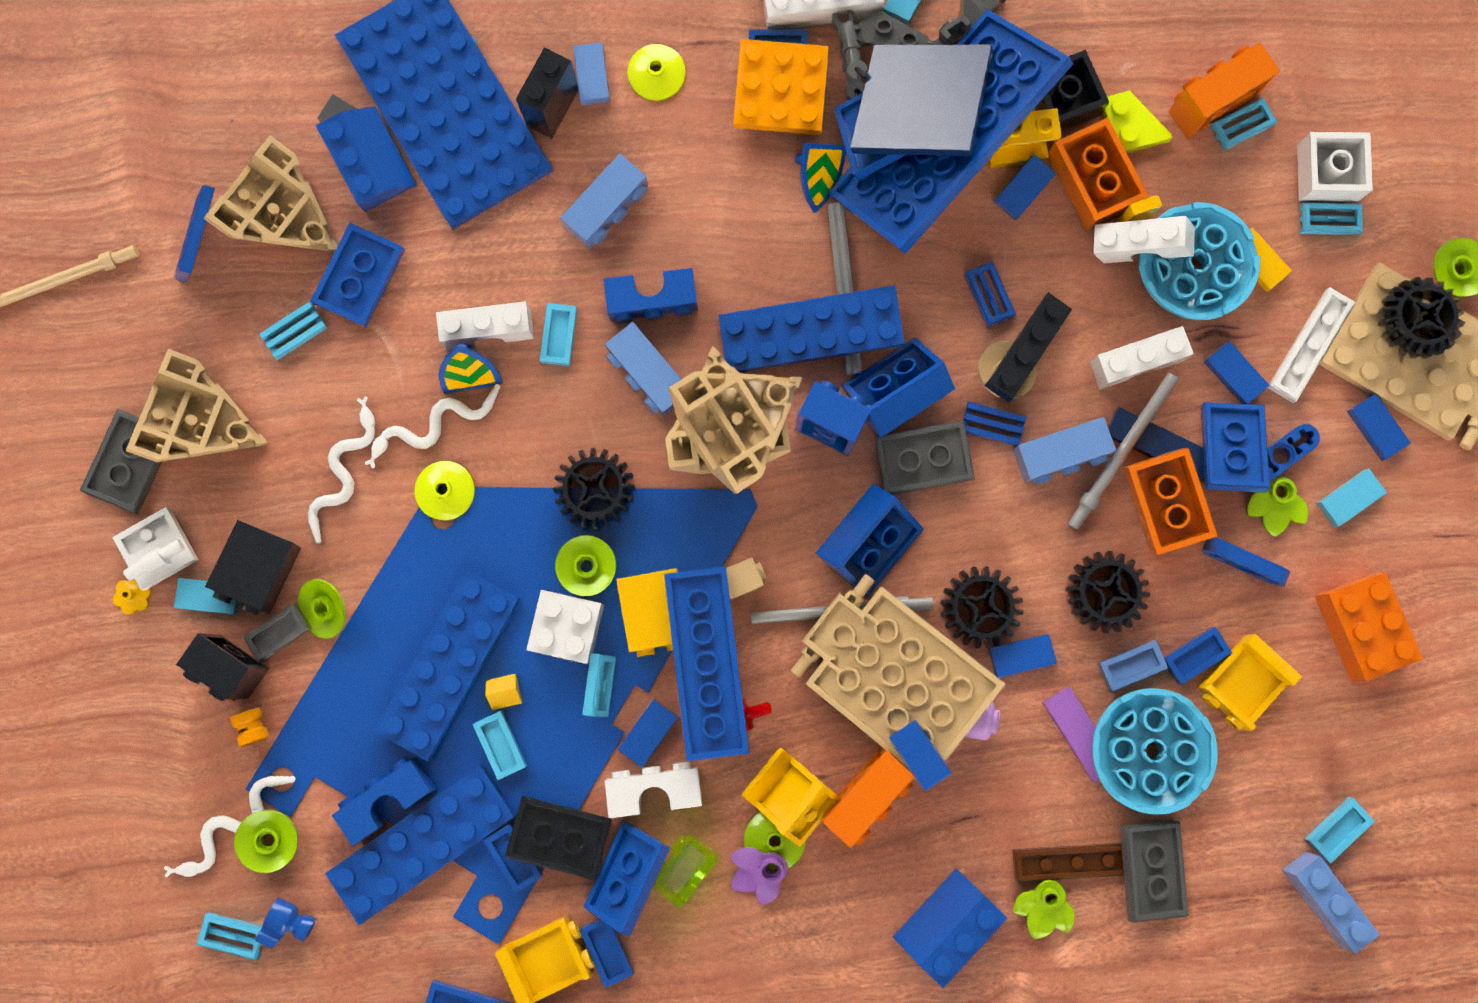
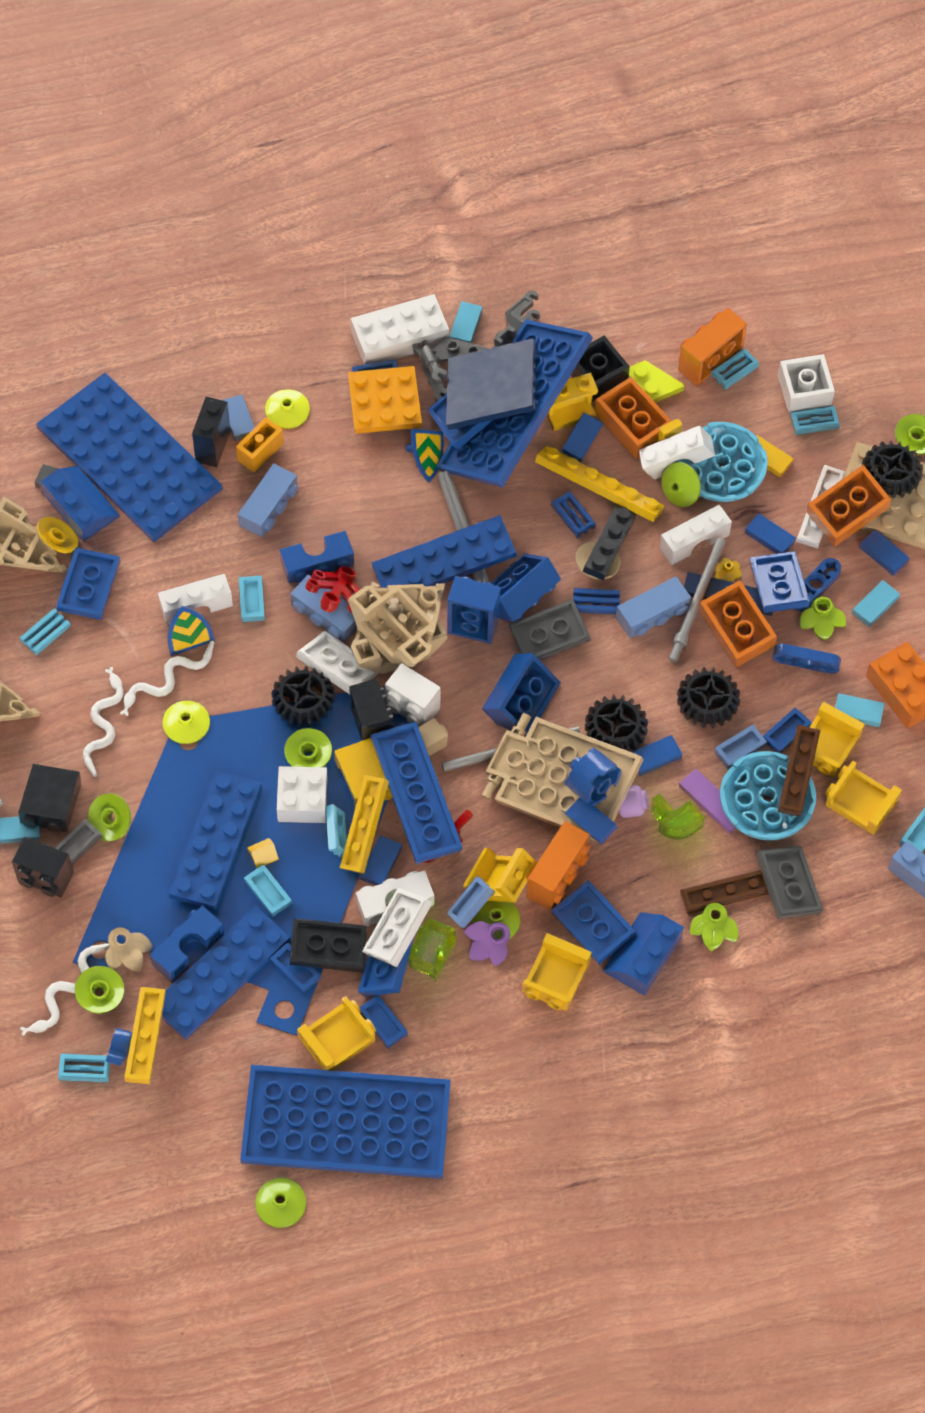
camera: 15 degrees left, 20 degrees down
(249, 727) = (69, 912): light orange wheel -> none
(304, 926) = (145, 1035): none -> yellow plate
(313, 796) = (129, 952): none -> tan plate
(334, 192) = (57, 535): none -> yellow dish
(608, 121) = (259, 445): none -> light orange brick
(633, 689) = (364, 824): none -> yellow plate
(640, 445) = (335, 661): none -> white tile
(645, 848) = (397, 927): none -> white tile
(672, 534) = (370, 708): none -> black brick
(682, 331) = (330, 600): none -> red plant
(729, 522) = (412, 695): none -> white brick
(746, 820) = (470, 902): none -> medium blue tile
(832, 935) = (556, 972): none -> yellow panel
(895, 877) = (593, 922): none -> blue plate
(934, 706) = (592, 776): none -> blue brick
(1032, 258) = (599, 483): none -> yellow plate
(1034, 760) = (676, 823): none -> clear neon green brick
(1146, 279) = (687, 481): none -> lime dish
(1167, 418) = (728, 570): none -> yellow plant
(1203, 728) = (799, 770): none -> reddish brown tile
(1273, 773) = (861, 798): none -> yellow panel
(1296, 644) = (862, 709): none -> medium azure tile
(1354, 362) = (848, 505): none -> orange brick

